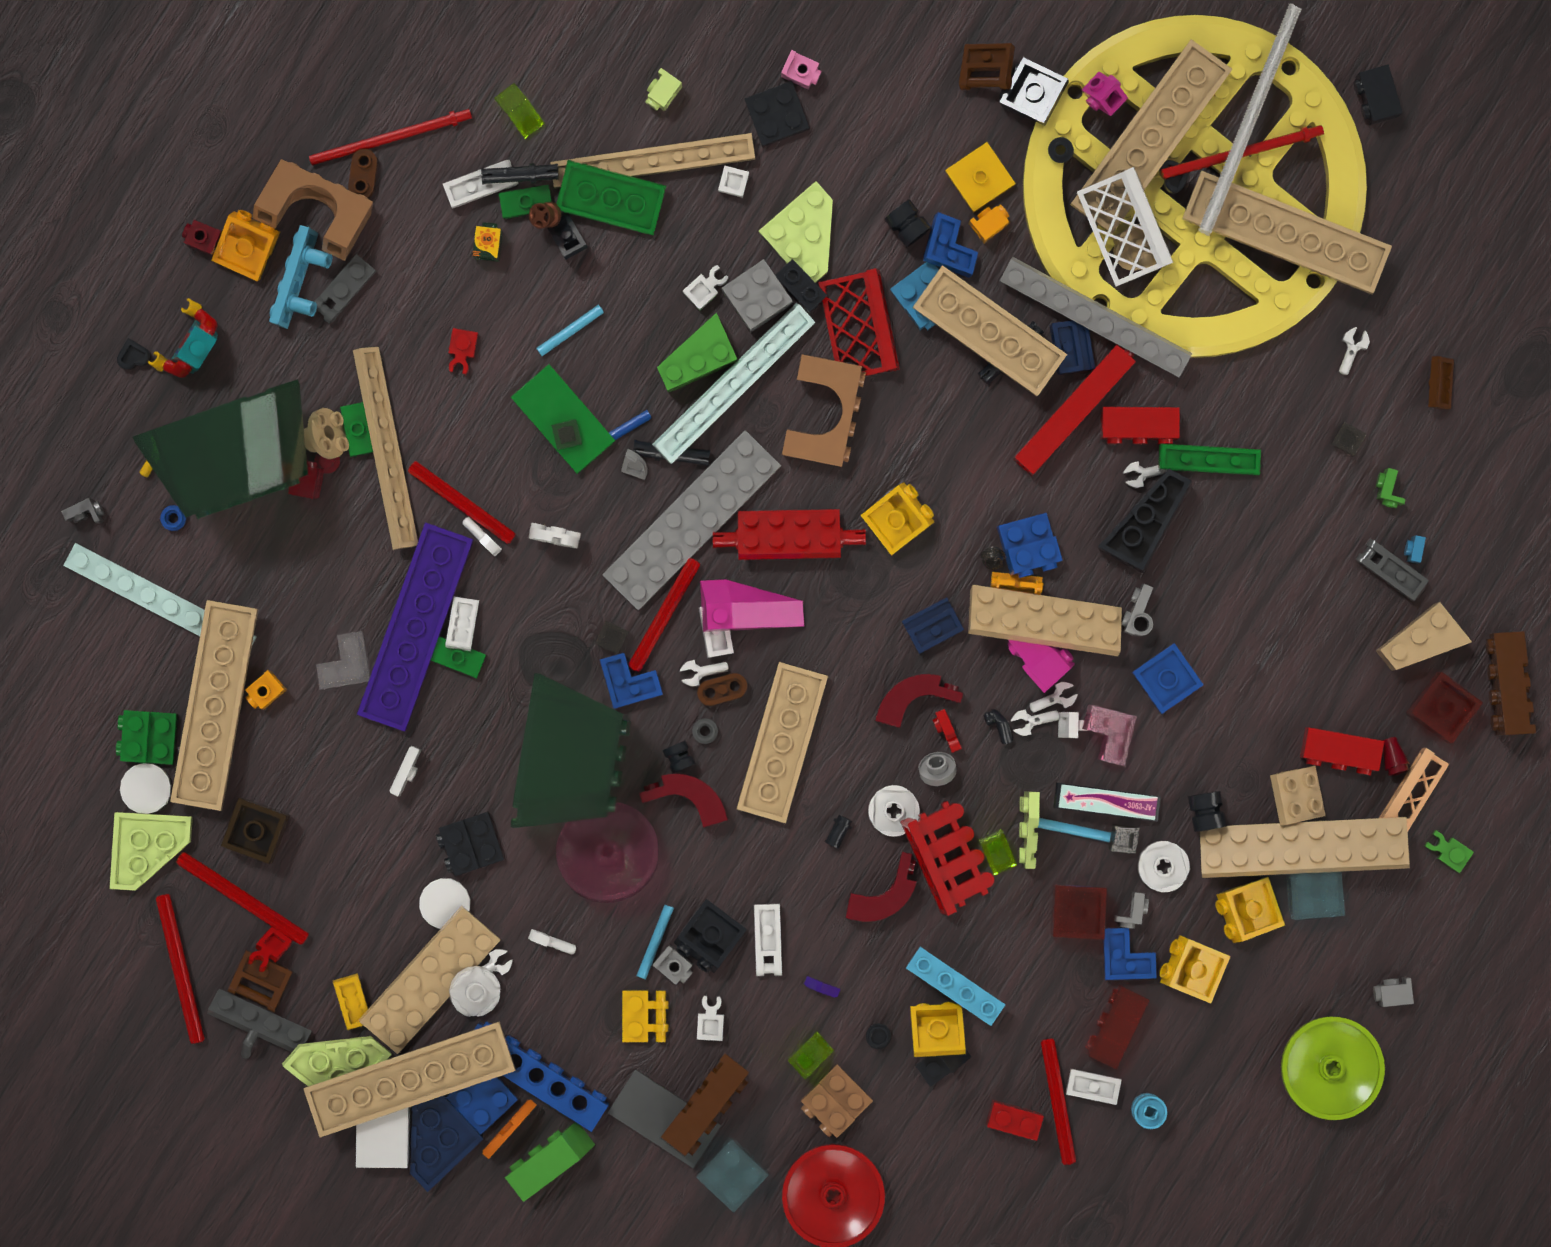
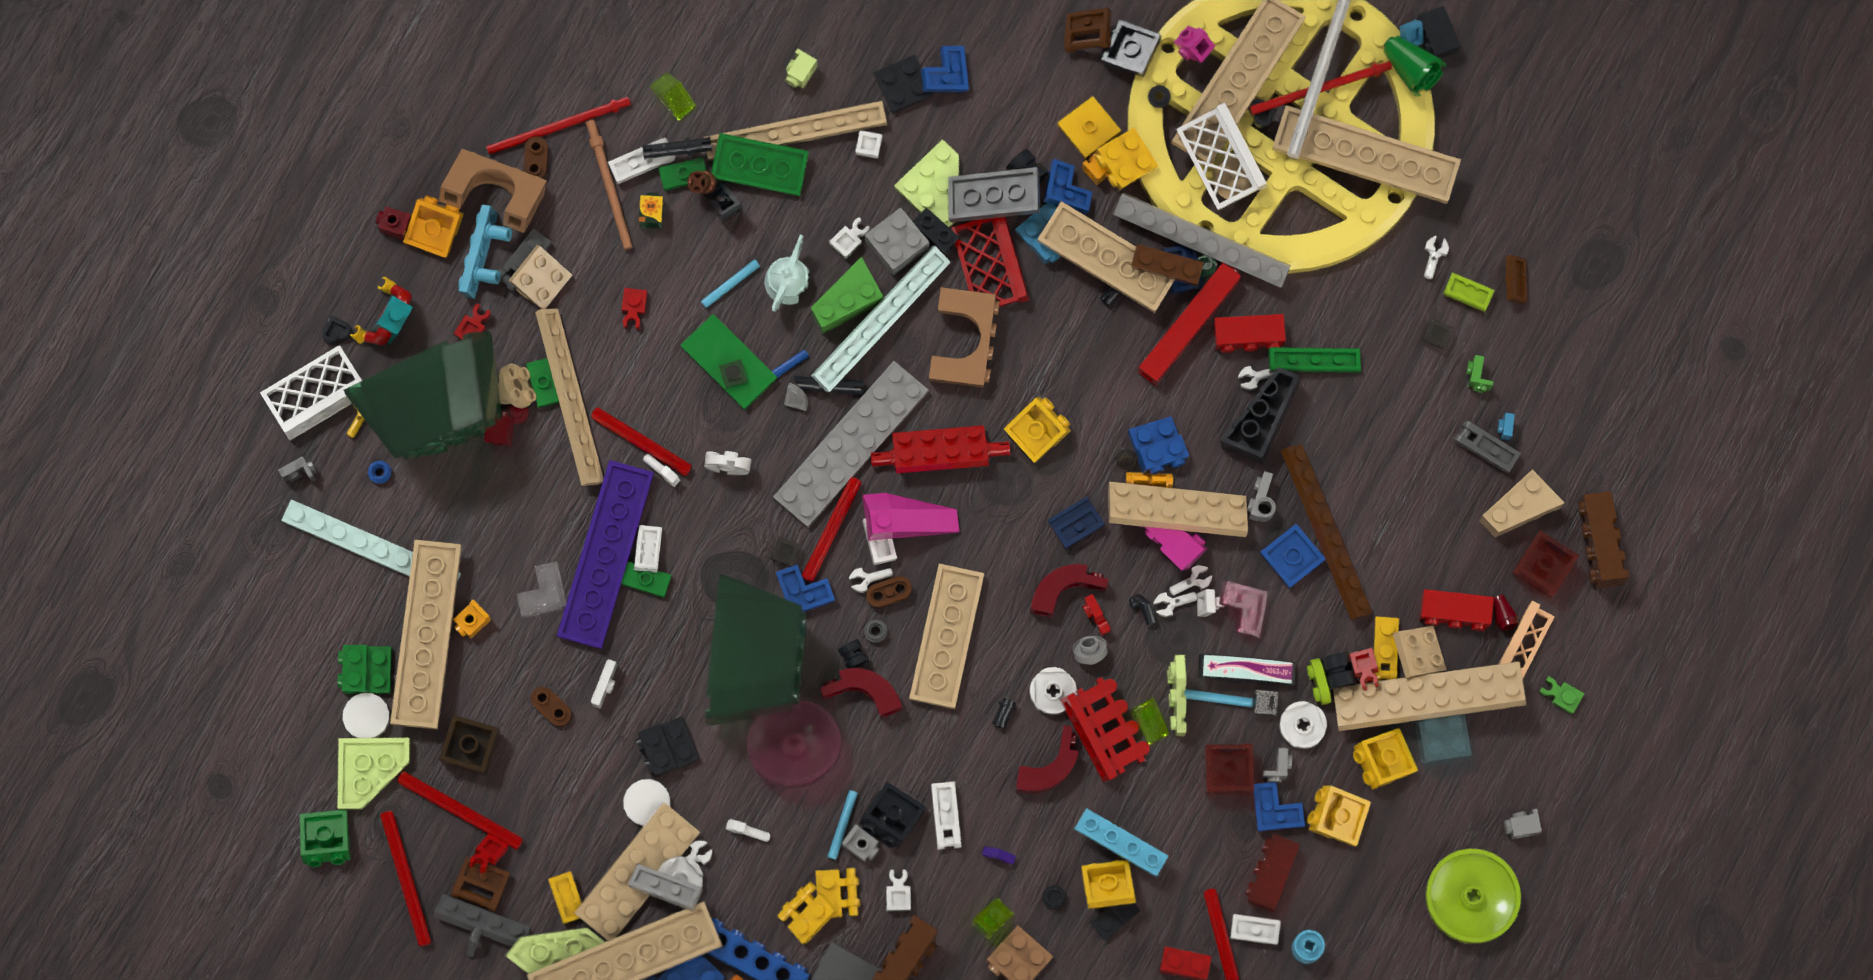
camera: 10 degrees left, 10 degrees down
(94, 919) = (324, 838): none -> green plate
(112, 444) = (319, 410): none -> white fence
(280, 363) = (472, 324): none -> red plate
(347, 789) = (550, 706): none -> reddish brown plate
(360, 311) = (540, 277): none -> tan plate
(431, 161) = (596, 143): none -> nougat bar
(458, 1003) = (665, 887): none -> light grey tile
(616, 1042) = (812, 918): none -> yellow plate
(633, 329) = (787, 278): none -> light aqua helmet
(791, 73) = (923, 52): bright pink brick -> none
(831, 109) = (952, 74): none -> blue plate
(868, 251) = (993, 194): none -> plate
(1017, 220) = (1125, 159): none -> yellow plate
(1054, 345) = (1167, 264): none -> reddish brown plate
(1097, 347) = (1209, 266): none -> clear green plate
(1182, 809) = (1316, 672): none -> lime plate
(1206, 654) = (1326, 532): none -> reddish brown plate
(1236, 806) = (1365, 666): none -> plate
(1260, 787) = (1385, 646): none -> yellow plate
(1348, 132) = (1413, 64): none -> green cone
(1349, 95) = (1412, 32): none -> dark azure plate
(1387, 393) = (1468, 292): none -> lime plate

